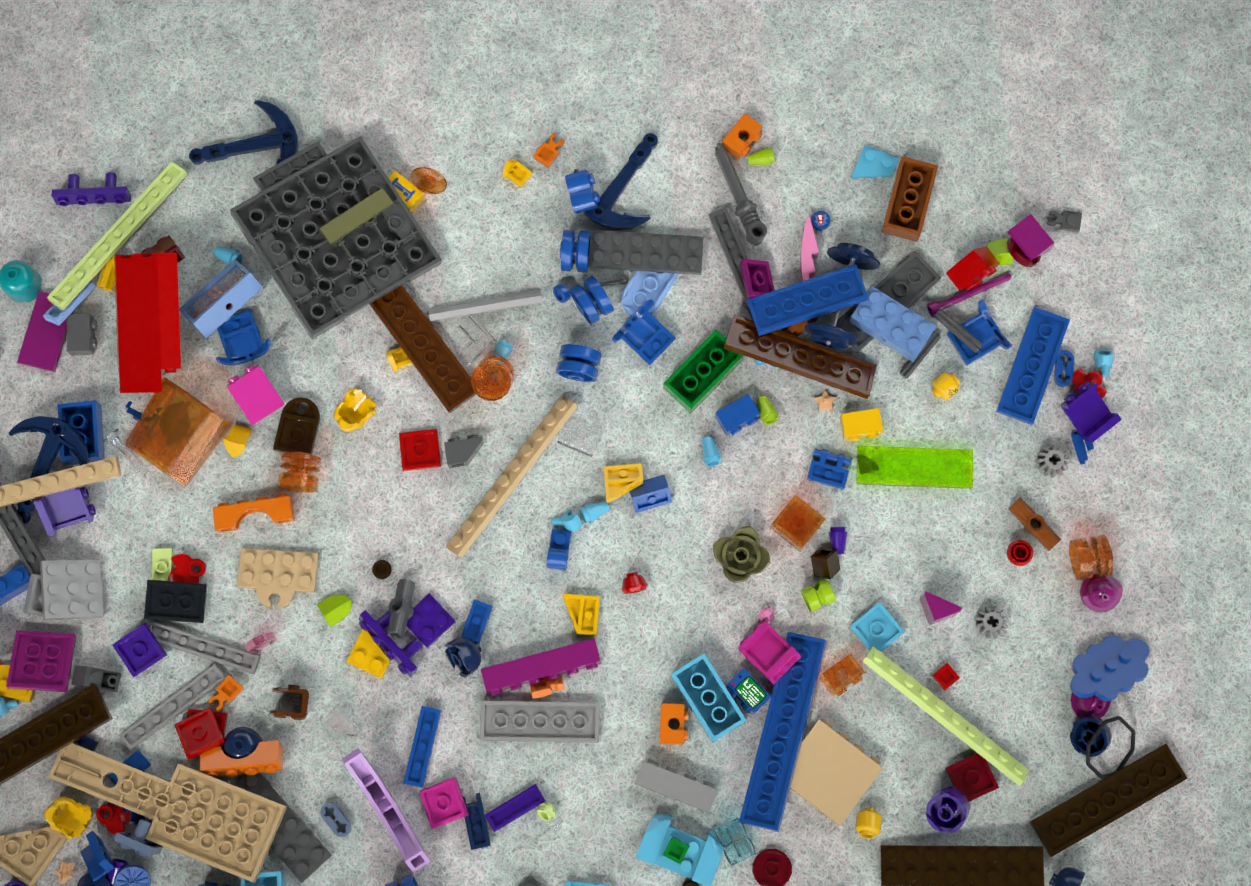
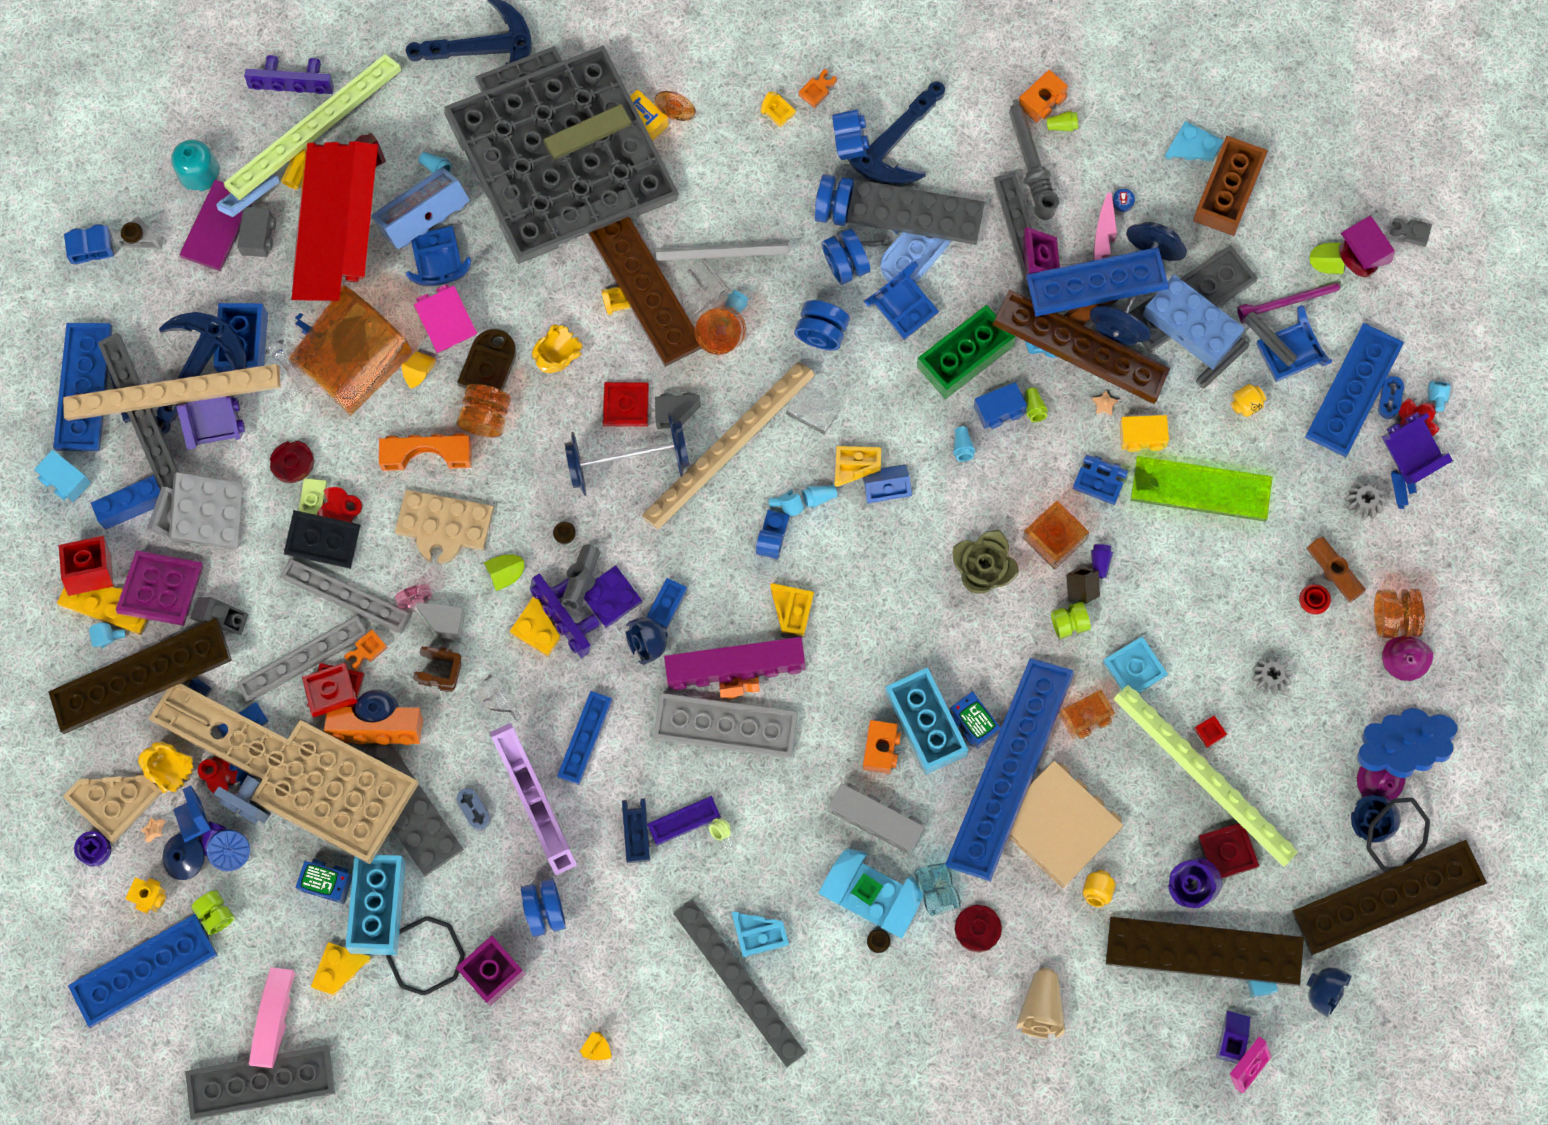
camera: 10 degrees right, 5 degrees down
(139, 650) = (273, 589): dark purple plate -> none
(140, 535) = (291, 461): none -> dark red tile
(289, 659) = (443, 619): none -> light grey slope
(383, 510) = (575, 464): none -> dark blue axle
(443, 803) = (601, 804): dark pink tile -> none
(561, 293) = (812, 247): blue tile -> none
(633, 583) = (855, 582): red cone -> none
(766, 614) = (1006, 636): bright pink plate -> none
(769, 652) = (1004, 677): dark pink panel -> none
(937, 609) = (1210, 650): magenta slope -> none
(973, 268) = (1296, 269): red brick -> none

